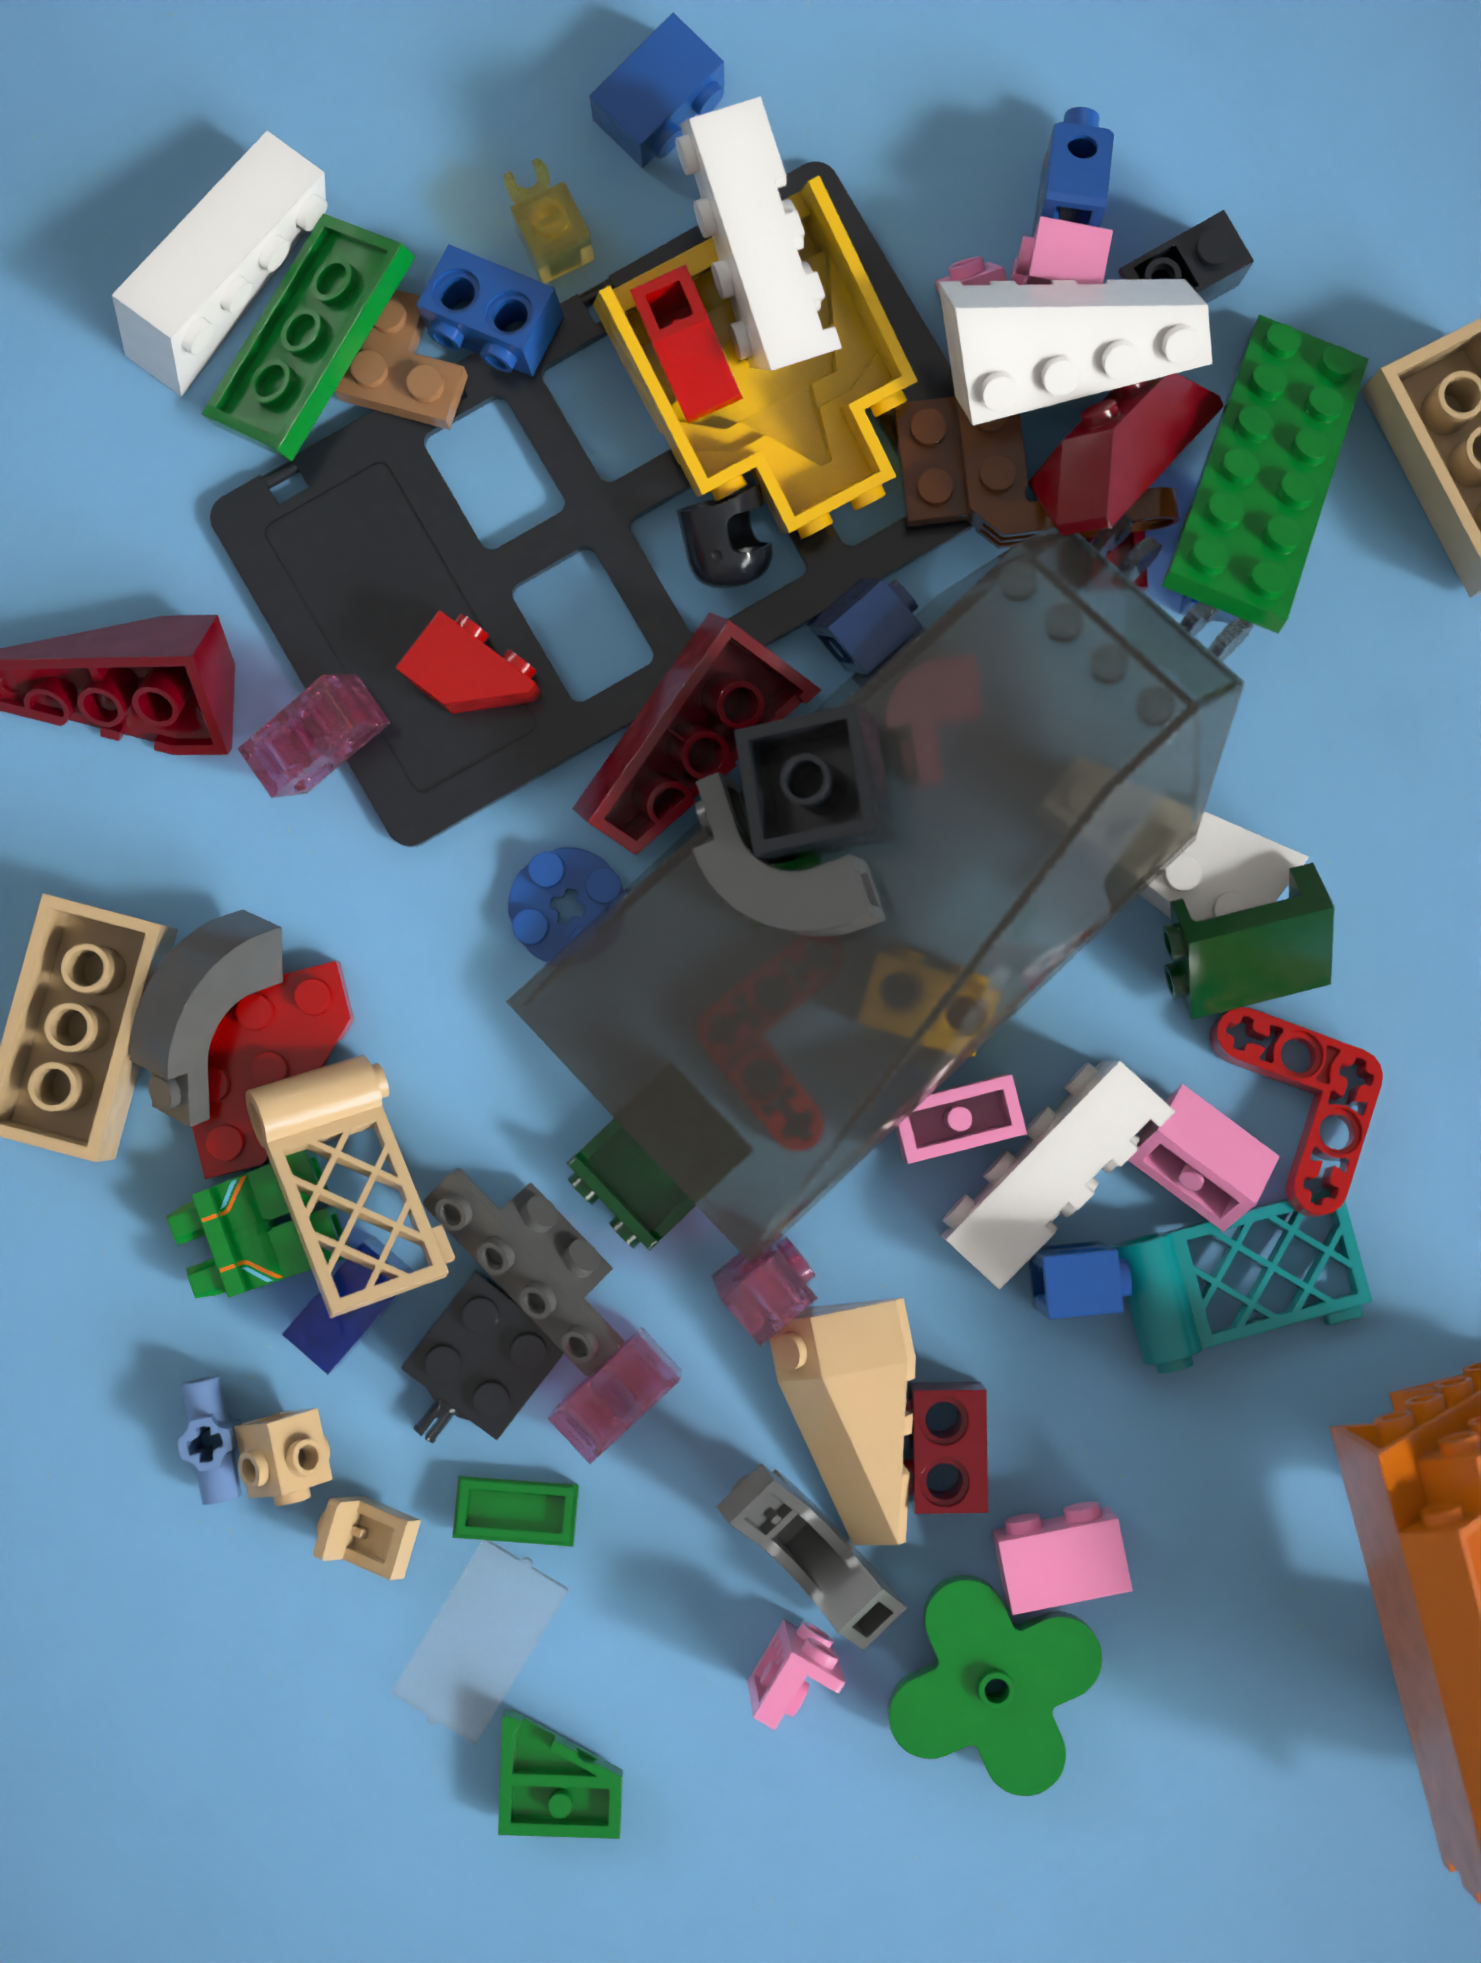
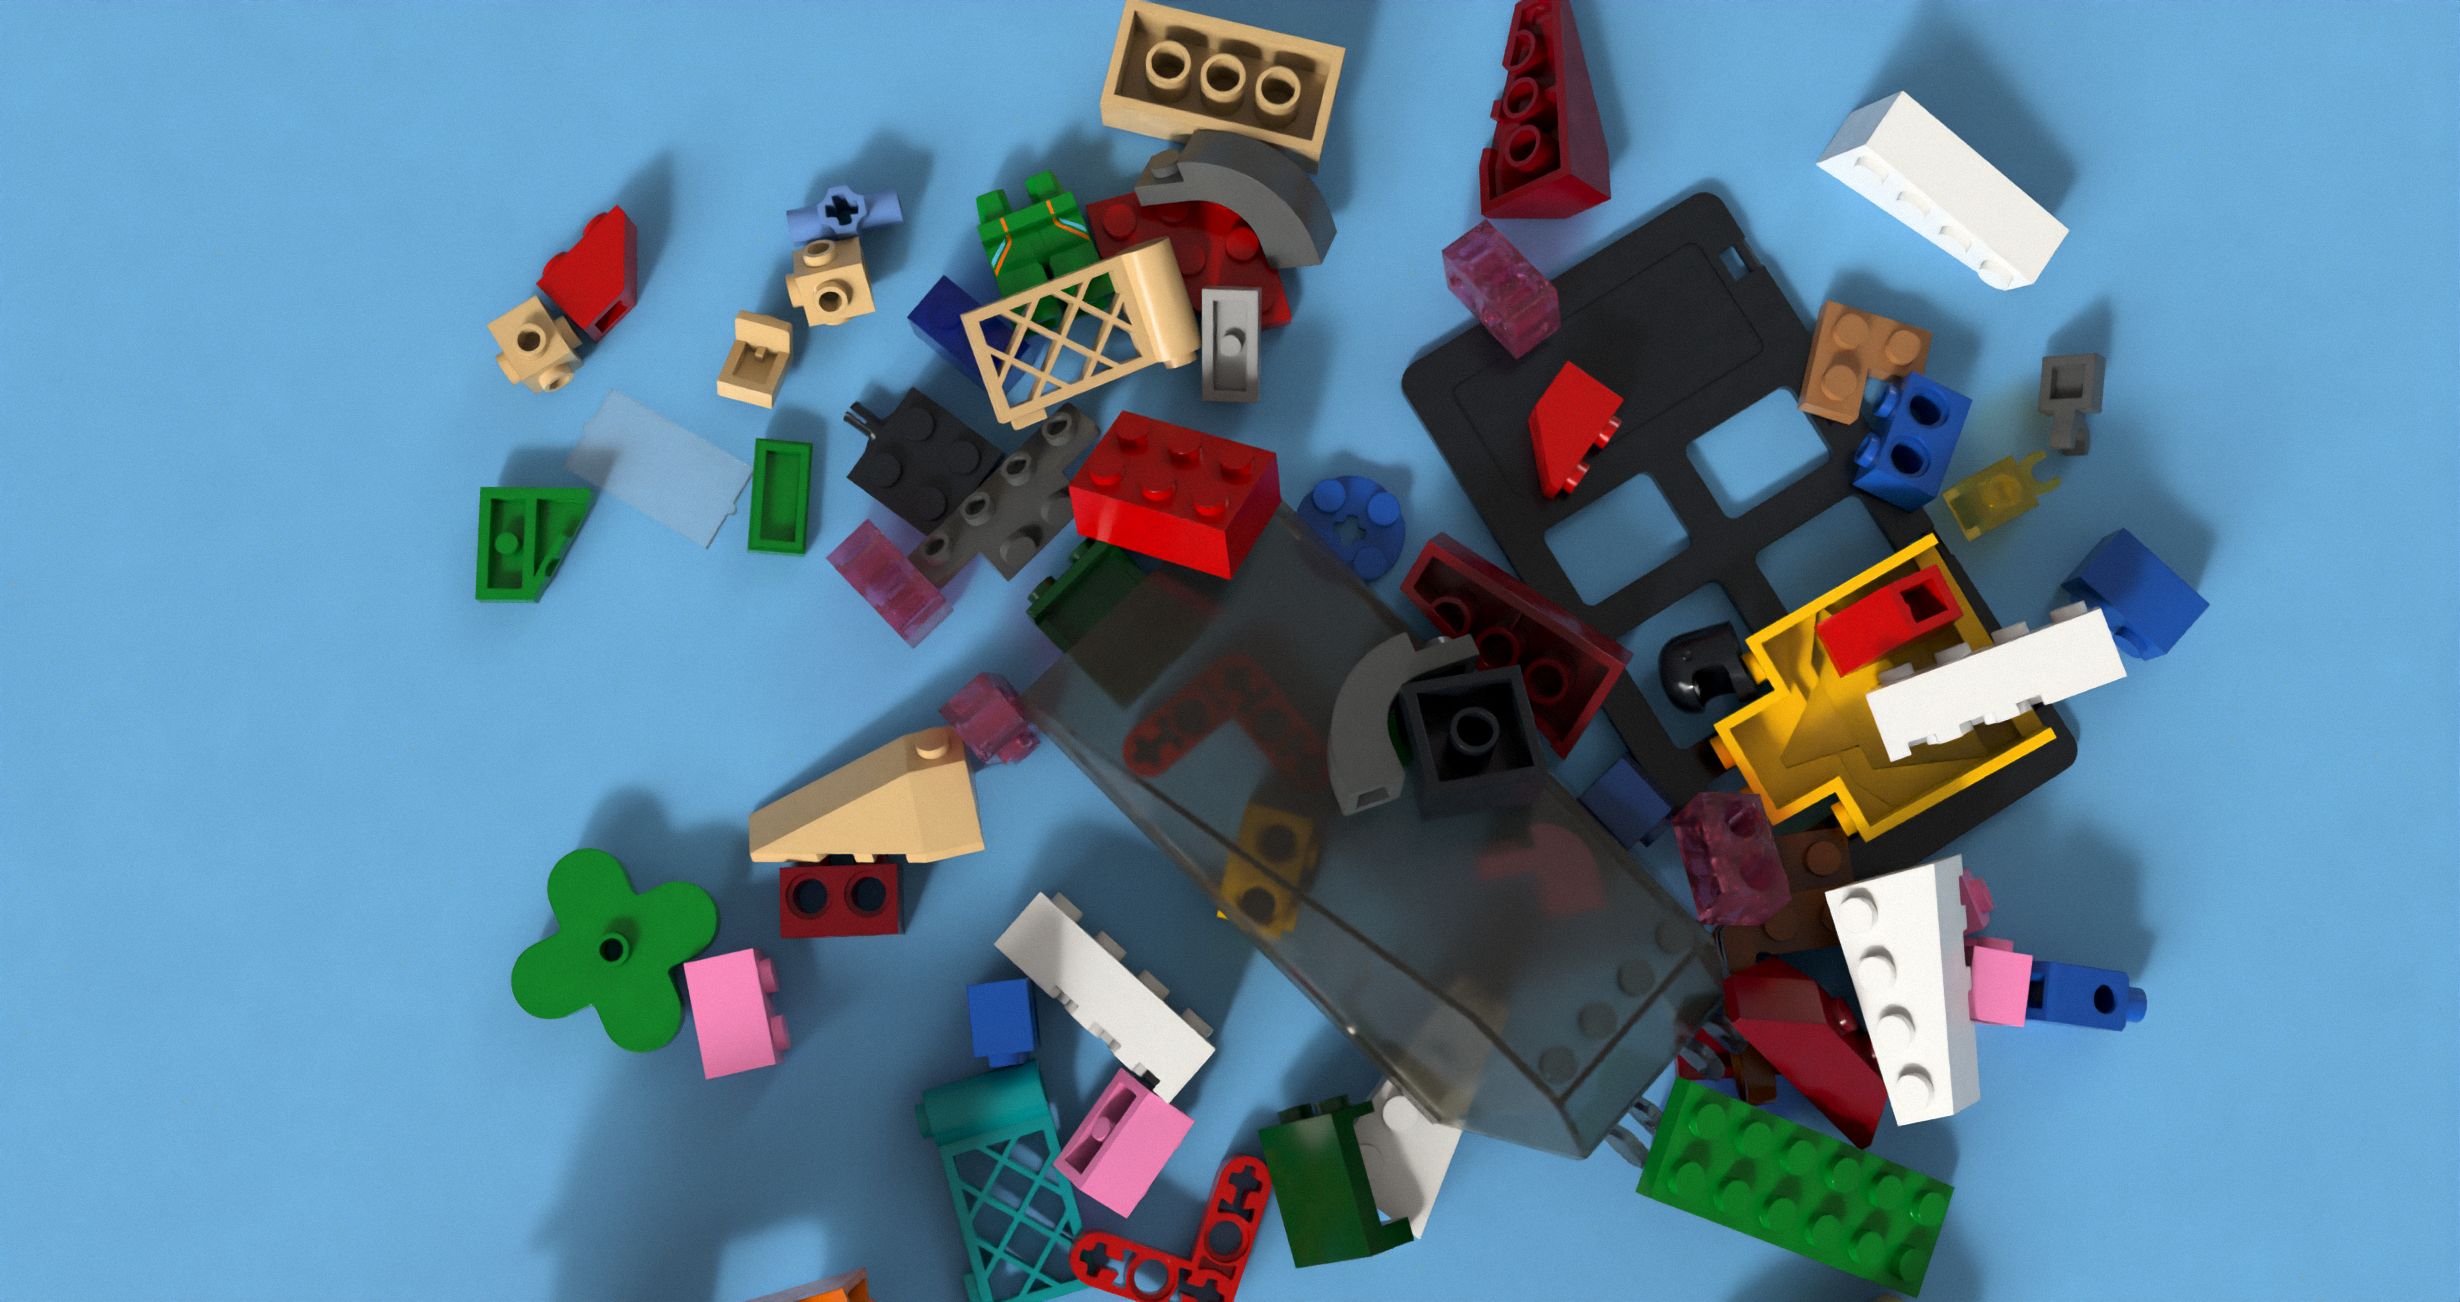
camera: 85 degrees right, 5 degrees down
(269, 1709) = (597, 276): none -> red slope
(308, 336) = (1878, 274): green plate -> none
(346, 1775) = (536, 346): none -> tan brick
(363, 1025) = (1231, 343): none -> light grey plate
(438, 143) = (2067, 392): none -> dark grey plate
(530, 1088) = (1176, 494): none -> red brick
(779, 1677) = (646, 759): bright pink bracket -> none
(814, 1553) = (743, 774): dark grey arch -> none
(932, 520) = (1731, 859): none -> clear pink brick
(961, 1119) = (1156, 903): bright pink brick -> none
(1205, 256) = (2001, 1124): black slope -> none

